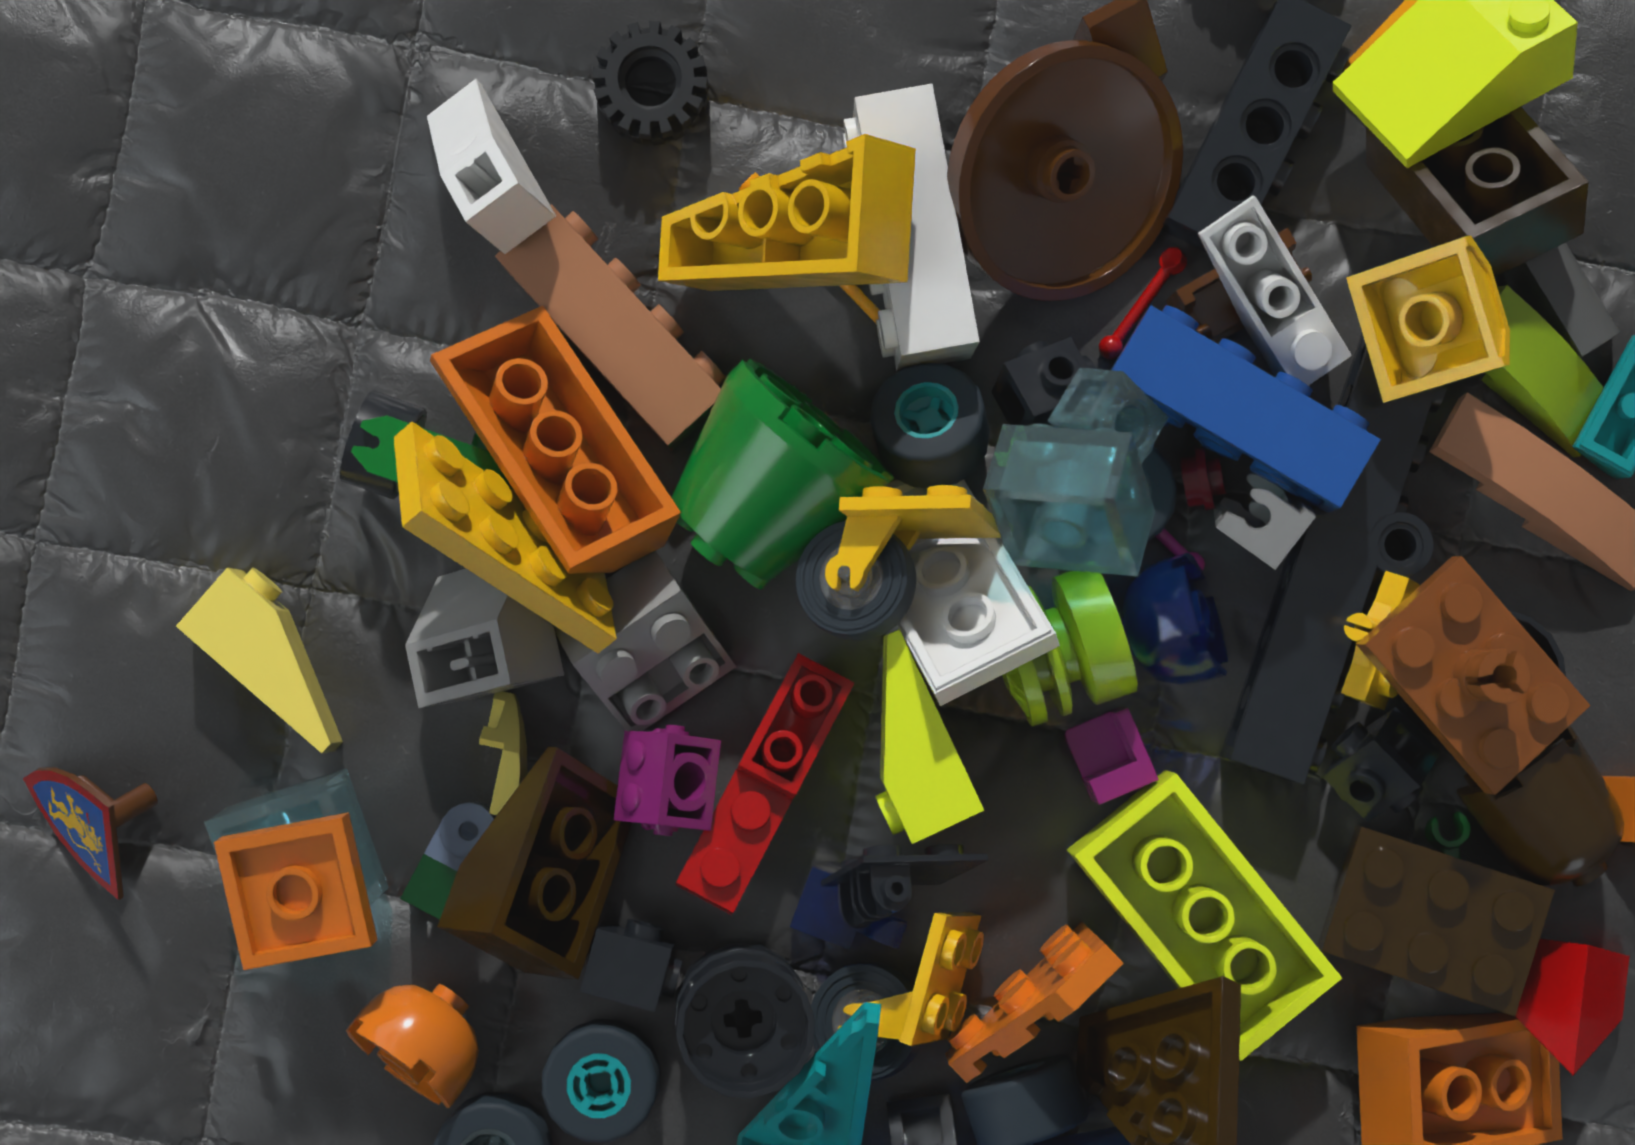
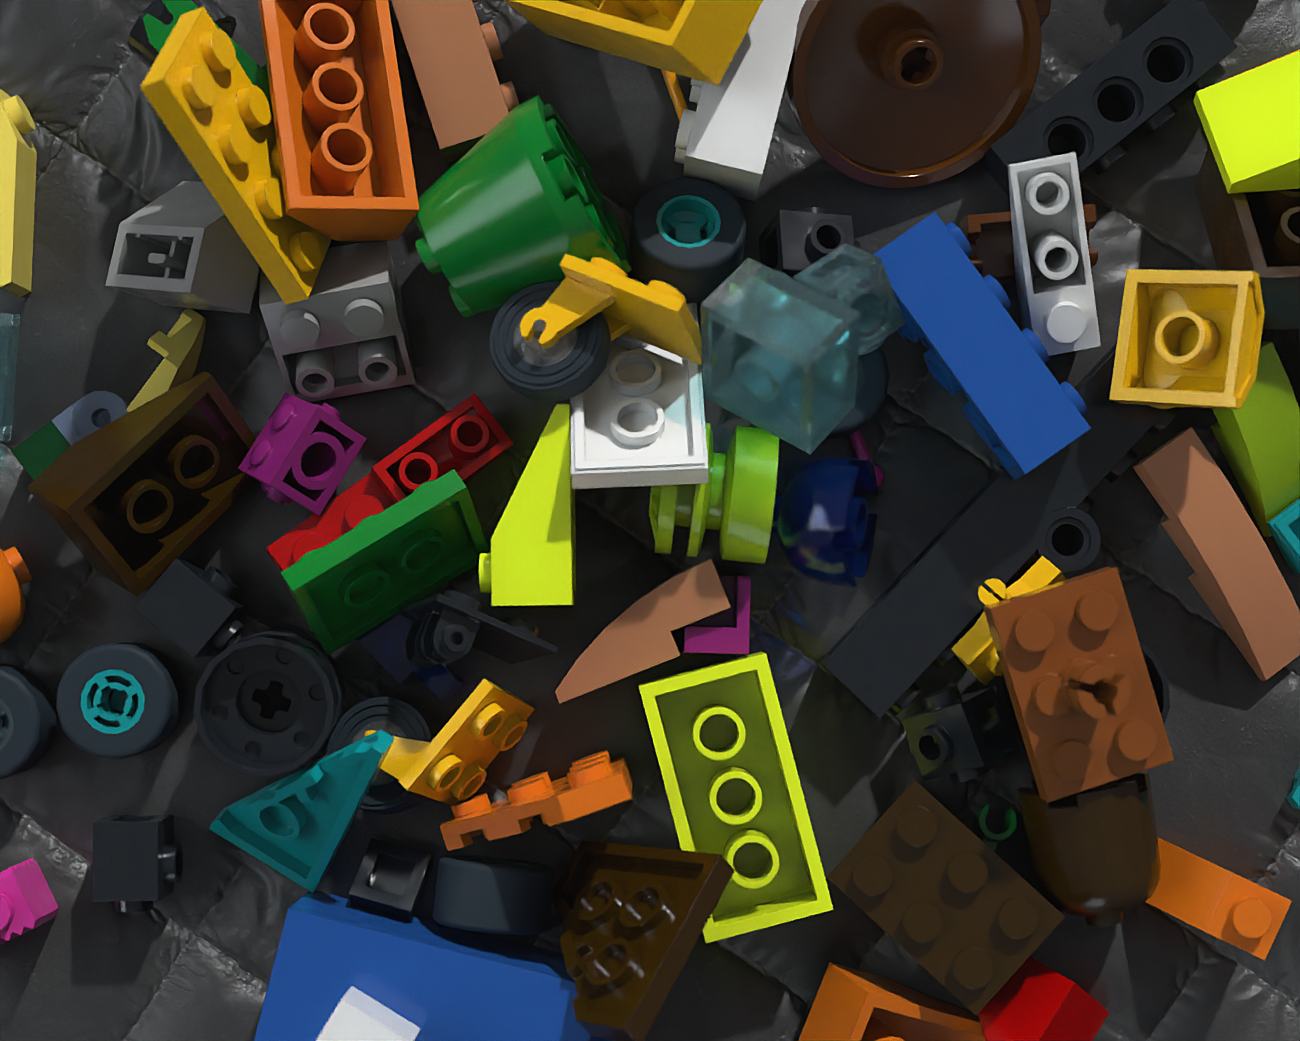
camera: 25 degrees right, 0 degrees up
(794, 844) = (387, 562): none -> green plate
(1051, 800) = (645, 630): none -> nougat slope
(1171, 262) = (976, 195): red hinge -> none
(1202, 479) = (914, 401): dark red plate -> none
(1270, 524) = (956, 468): light grey hinge -> none

